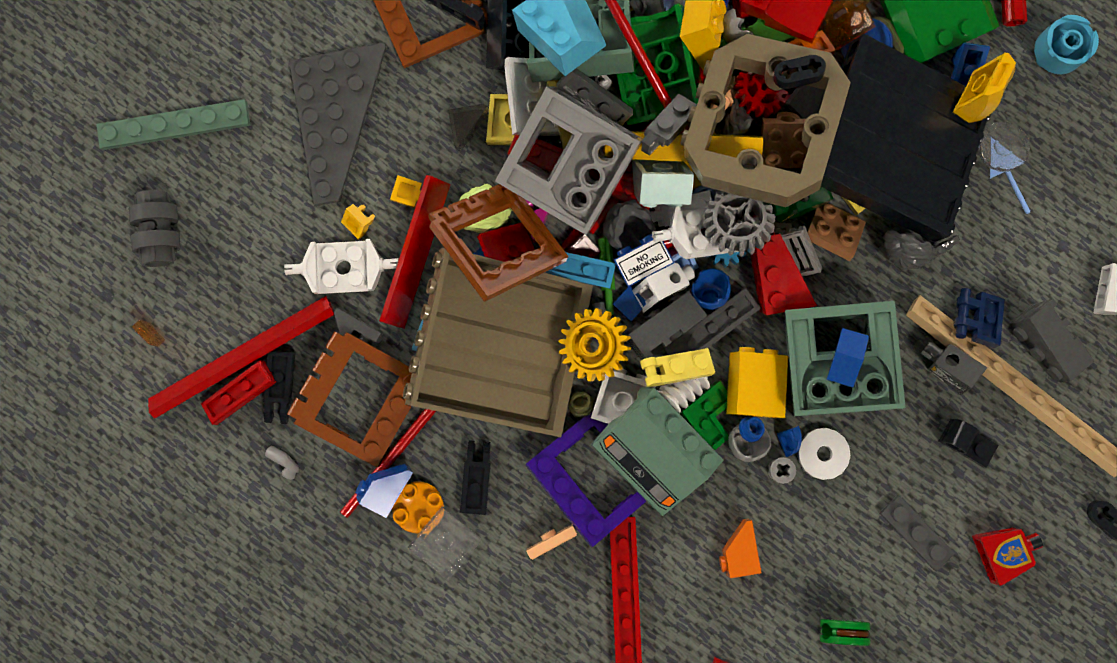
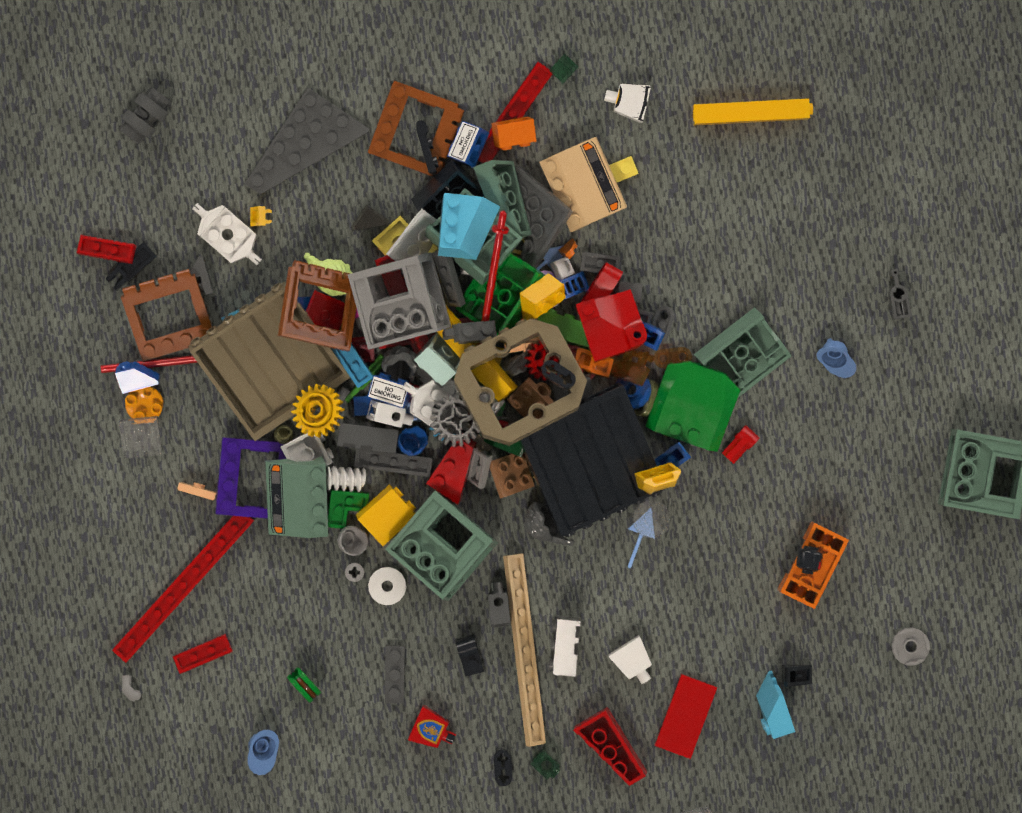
camera: 40 degrees right, 5 degrees up
(148, 333) = (88, 169): clear orange tile -> none
(173, 124) = (210, 61): sand green plate -> none
(240, 357) = (126, 230): red tile -> none
(284, 460) = (96, 306): light grey arm -> none
(406, 191) = (302, 227): yellow plate -> none
(414, 253) = (273, 265): red tile -> none
(476, 481) = (188, 420): black hinge -> none
(678, 367) = (350, 465): light yellow plate -> none
(732, 27) = (559, 316): light grey hair -> none
(741, 552) = (290, 593): orange slope -> none
(756, 426) = (362, 537): blue plate -> none
(790, 440) = (375, 561): blue tile -> none
(848, 357) = (439, 545): blue slope -> none
(987, 319) = (543, 601): dark blue plate -> none
(1066, 44) = (740, 486): medium azure brick -> none

